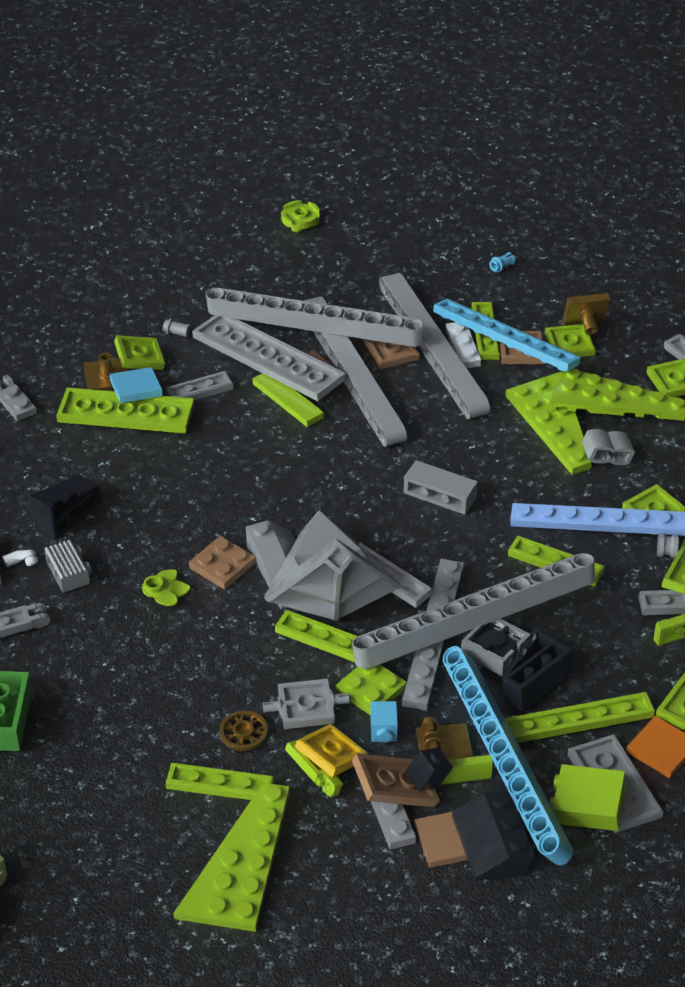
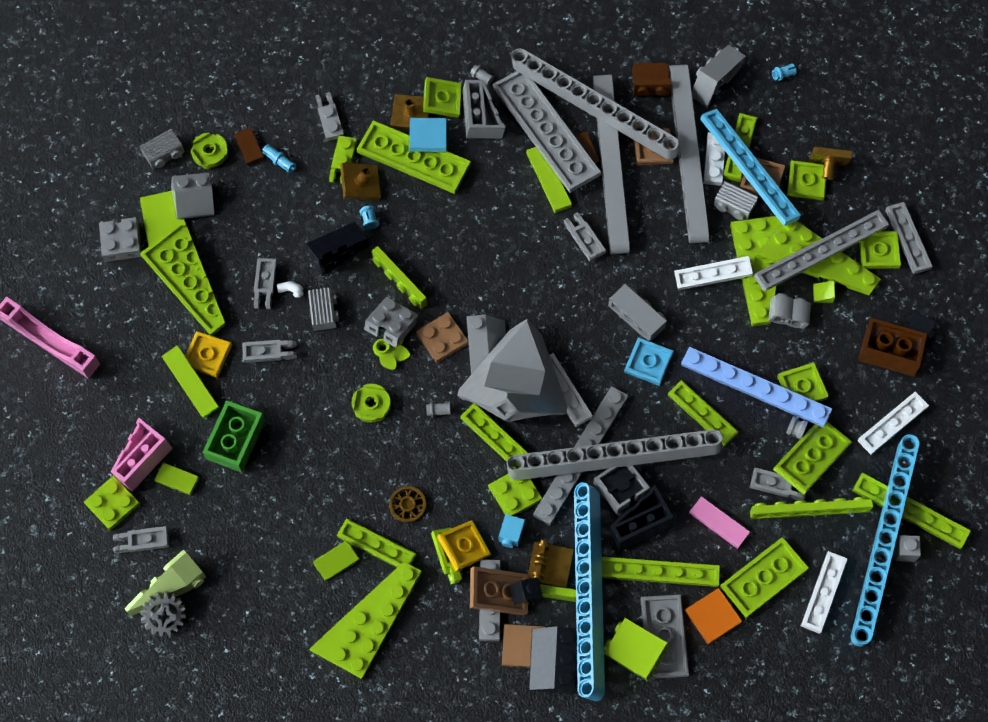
camera: 20 degrees right, 25 degrees up
(42, 429) = (343, 154): none -> lime hinge
(71, 441) = (360, 181): none -> pearl gold tile
(95, 471) = (369, 217): none -> medium azure bush
(150, 517) = (403, 283): none -> lime plate
(155, 652) = (364, 395): none -> lime plate
(156, 556) = (391, 322): none -> light grey piece
(174, 807) = (336, 560): none -> lime slope
(186, 354) = (479, 112): none -> light grey wedge
(201, 387) = (481, 146): light grey tile -> none
(244, 628) = (438, 409): none -> light grey pin
(306, 703) = (460, 495): light grey plate -> none
(350, 436) = (585, 238): none -> light grey hinge
(366, 294) = (651, 79): none -> reddish brown bracket
(432, 274) = (716, 73): none -> light grey wedge
(472, 529) = (648, 361): none -> medium azure tile
(502, 370) = (735, 201): none -> light grey brick
(508, 433) = (713, 273): none -> white plate
(615, 384) = (821, 250): none -> light grey plate
(624, 655) = (719, 522): none -> bright pink tile
(636, 425) = (824, 292): none -> lime slope

